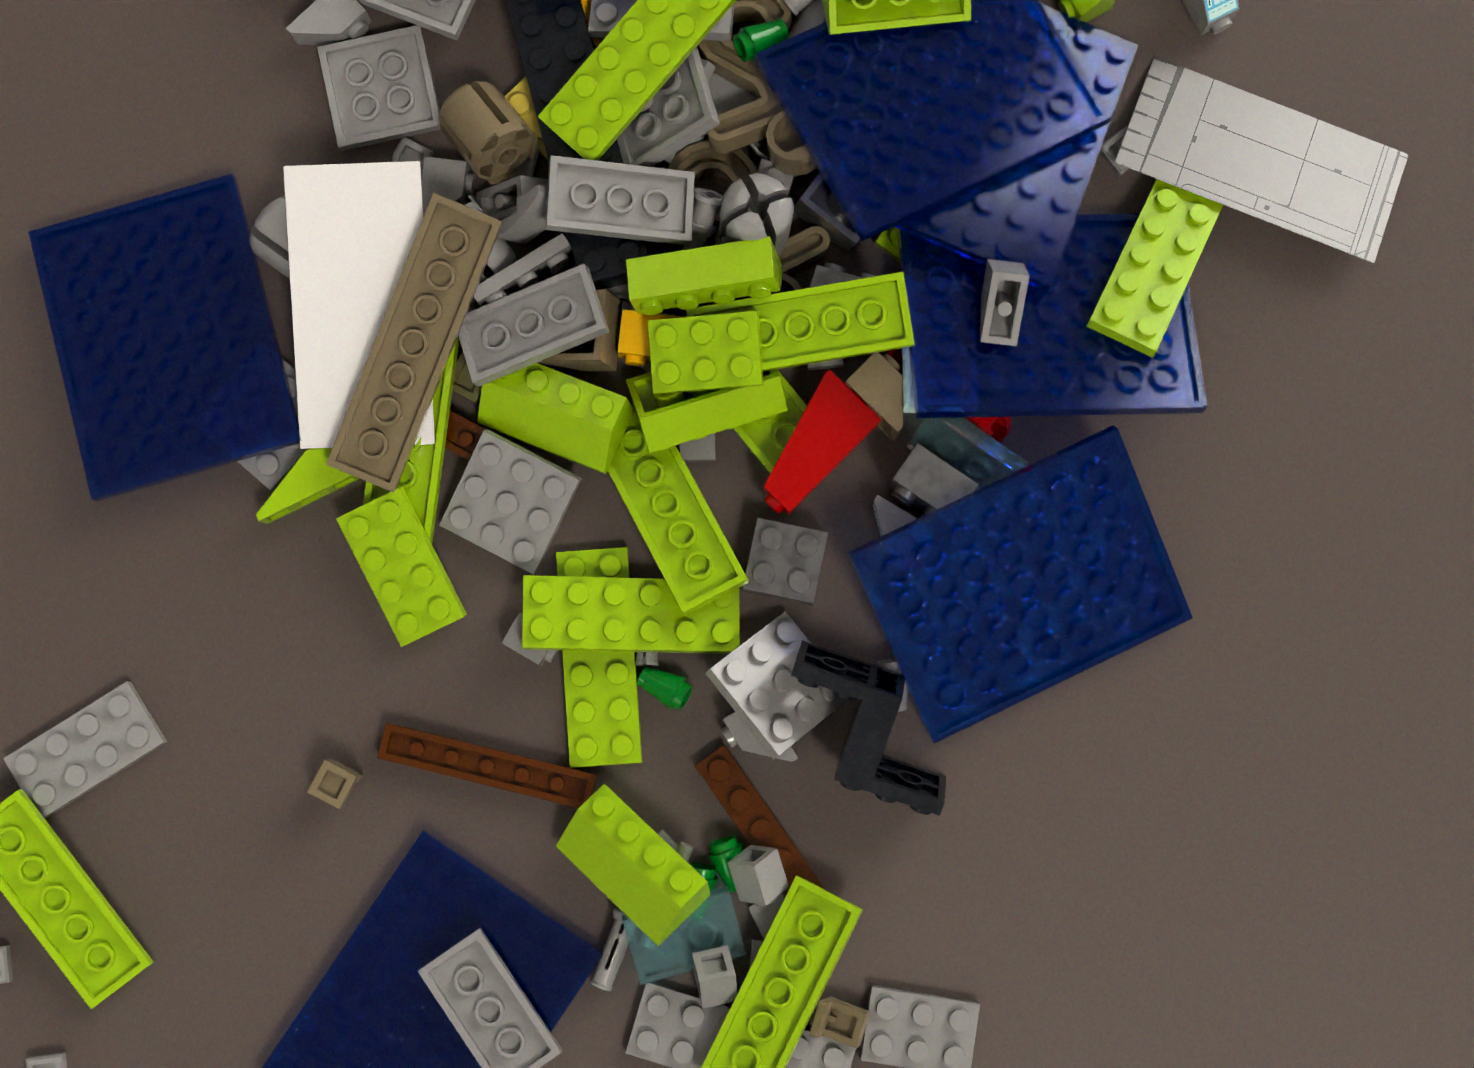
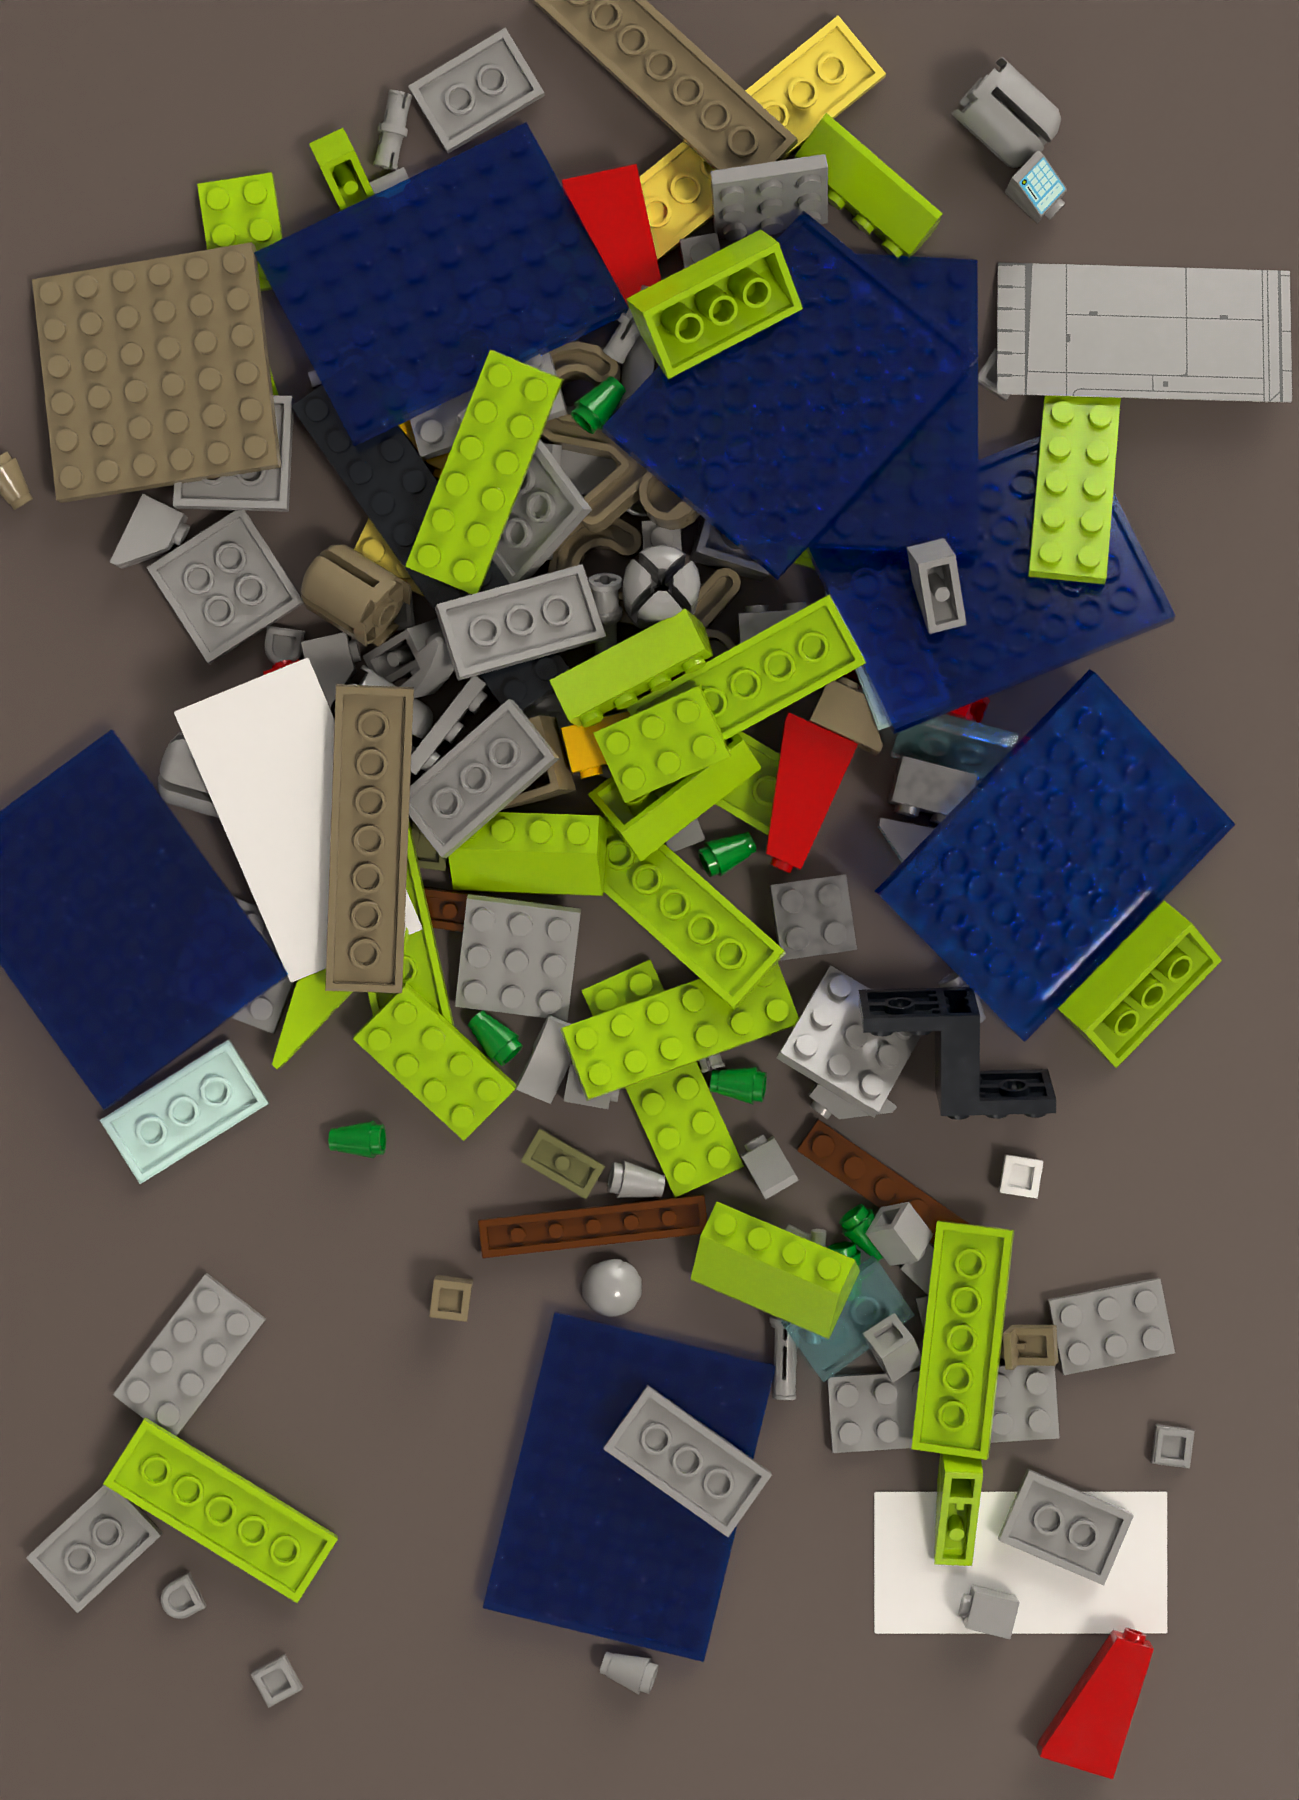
camera: 25 degrees left, 5 degrees up
(166, 531) = (184, 1111): none -> light aqua tile
(311, 612) = (359, 1139): none -> green cone
(463, 566) = (495, 1038): none -> green cone
(481, 699) = (562, 1163): none -> olive plate
(483, 828) = (611, 1287): none -> light grey hair
(499, 605) = (547, 1062): none -> light grey slope
(539, 739) = (634, 1181): none -> light grey cone
(663, 769) = (768, 1165): none -> light grey slope
(729, 478) = (726, 853): none -> green cone
(887, 863) = (1021, 1176): none -> white plate
(1057, 729) = (1140, 983): none -> lime slope

